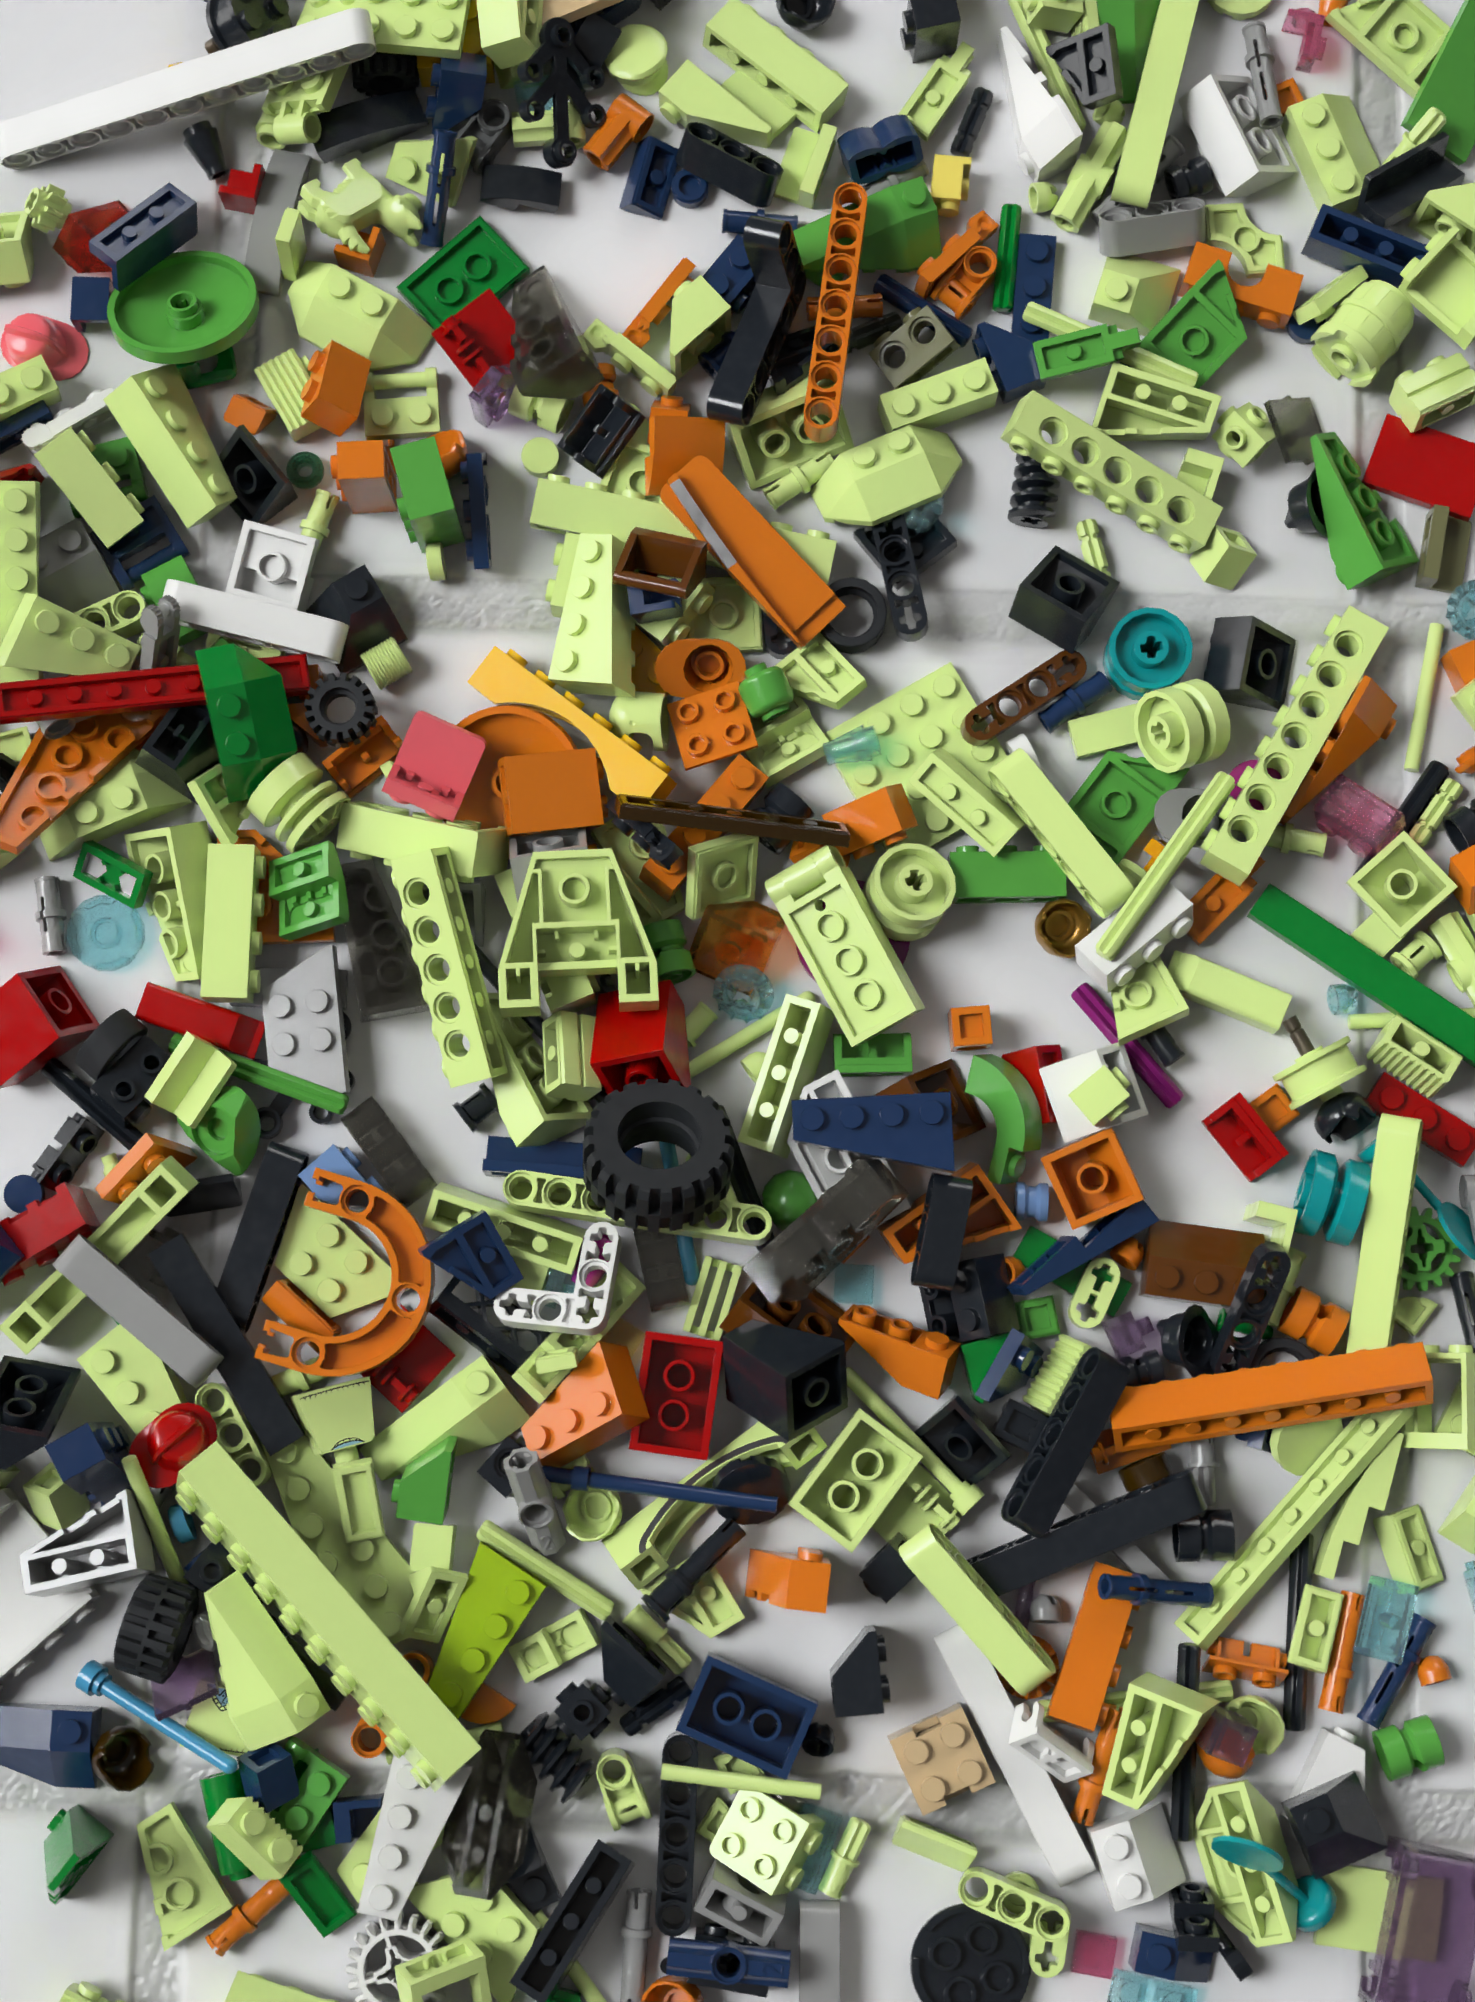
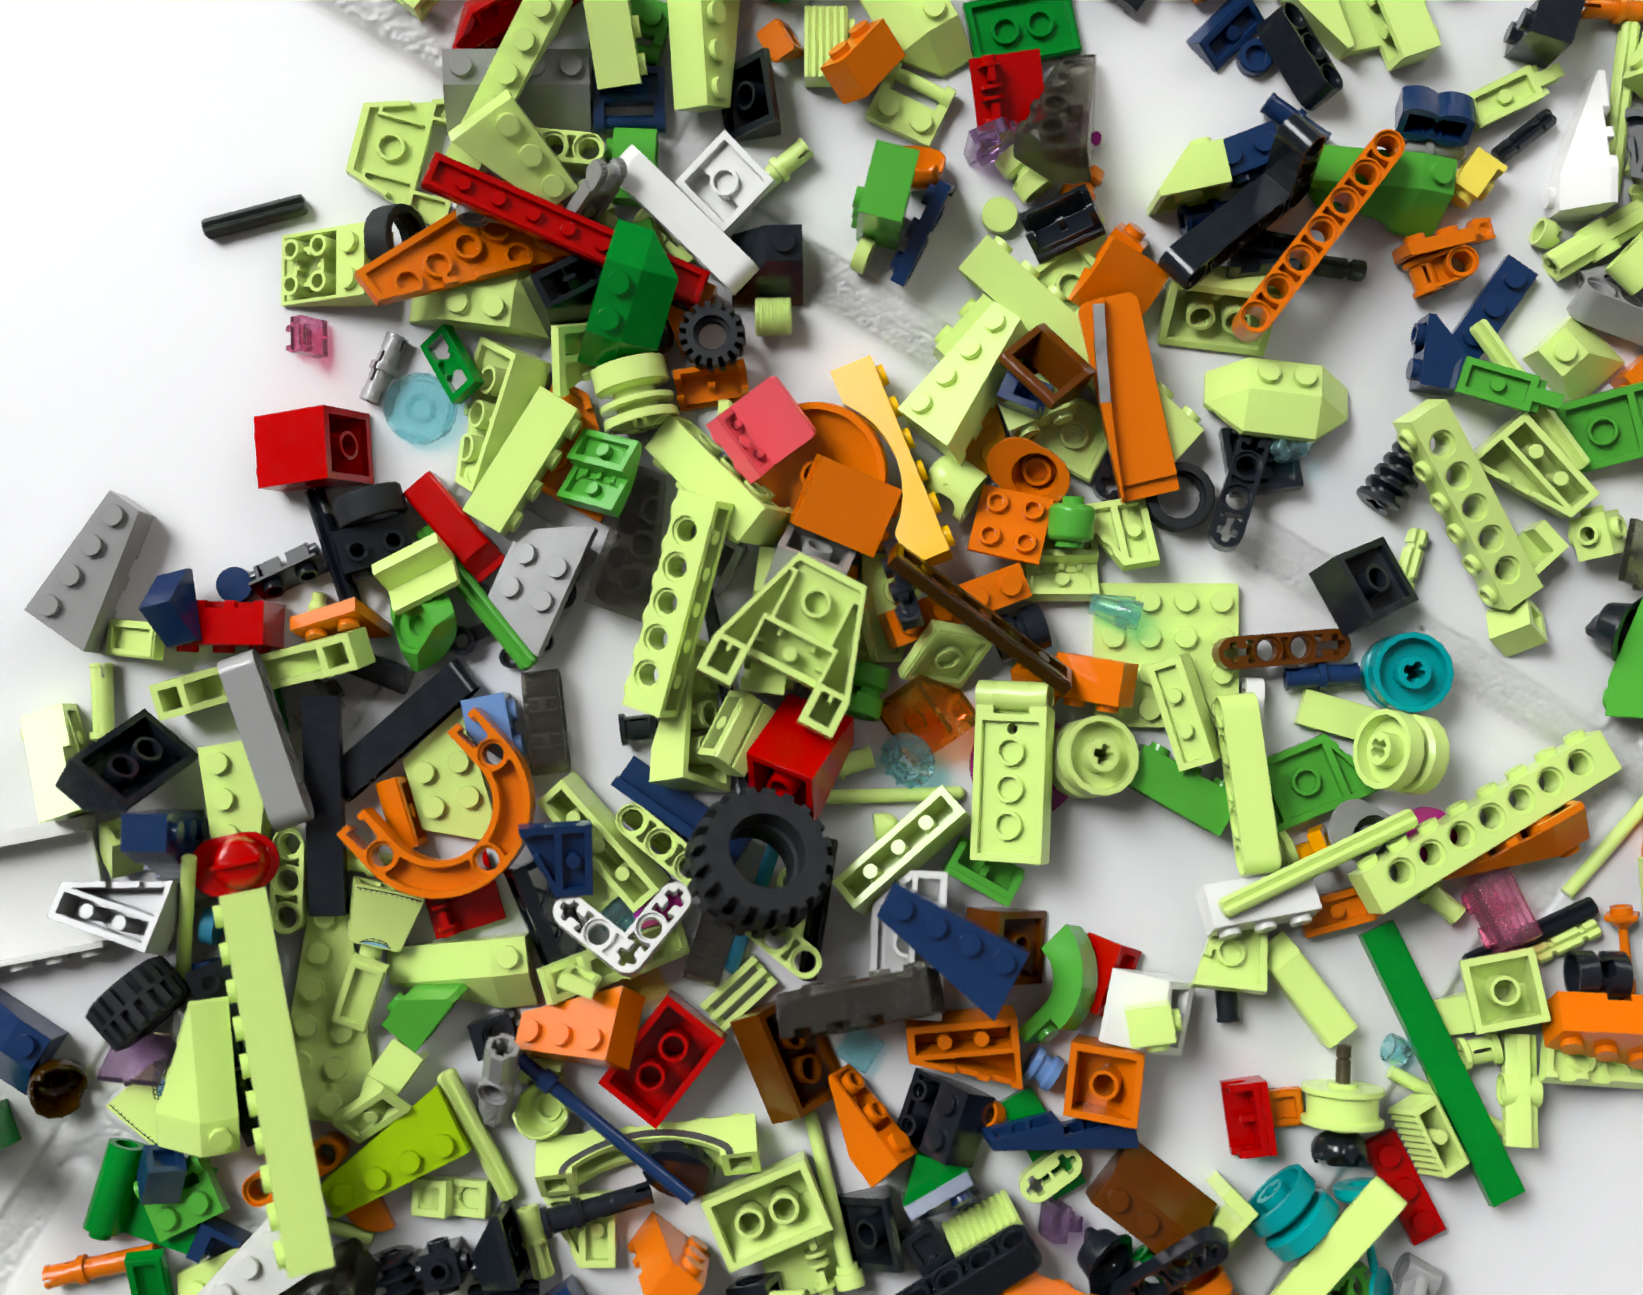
camera: 30 degrees right, 5 degrees up
(96, 1680) = (73, 1012): dark azure piece -> none
(181, 1876) = (53, 1206): yellowish green wing -> none
(254, 1838) = (122, 1217): yellowish green brick -> none
(302, 460) = (799, 105): clear green plate -> none
(366, 475) = (846, 148): wedge -> none
(630, 358) = (1121, 174): yellowish green hinge -> none
(656, 307) = (1168, 144): orange hinge -> none
(785, 1376) = (757, 1100): black slope -> none
(787, 1197) = (847, 950): bright green hair -> none
(798, 480) = (1201, 358): yellowish green pin -> none
(806, 164) = (1363, 93): yellowish green panel -> none
(864, 307) = (1345, 244): orange pin -> none
(907, 300) = (1388, 273): dark blue axle -> none
(919, 357) = (1364, 312): olive brick -> none
(939, 398) = (1359, 357): yellowish green brick -> none
(941, 1232) = (954, 1059): black beam -> none
(970, 1028) = (1076, 898): orange brick -> none
(1007, 258) = (1487, 267): green axle -> none
(1037, 1317) = (992, 1165): bright green tile -> none
(1061, 927) = (1201, 859): pearl gold hair -> none
(1128, 1253) = (1097, 1158): orange hinge -> none
(1139, 1058) = (1201, 1006): magenta axle -> none
(1144, 1369) = (1056, 1258): black wheel -> none
(1249, 662) = (1486, 727): black slope -> none

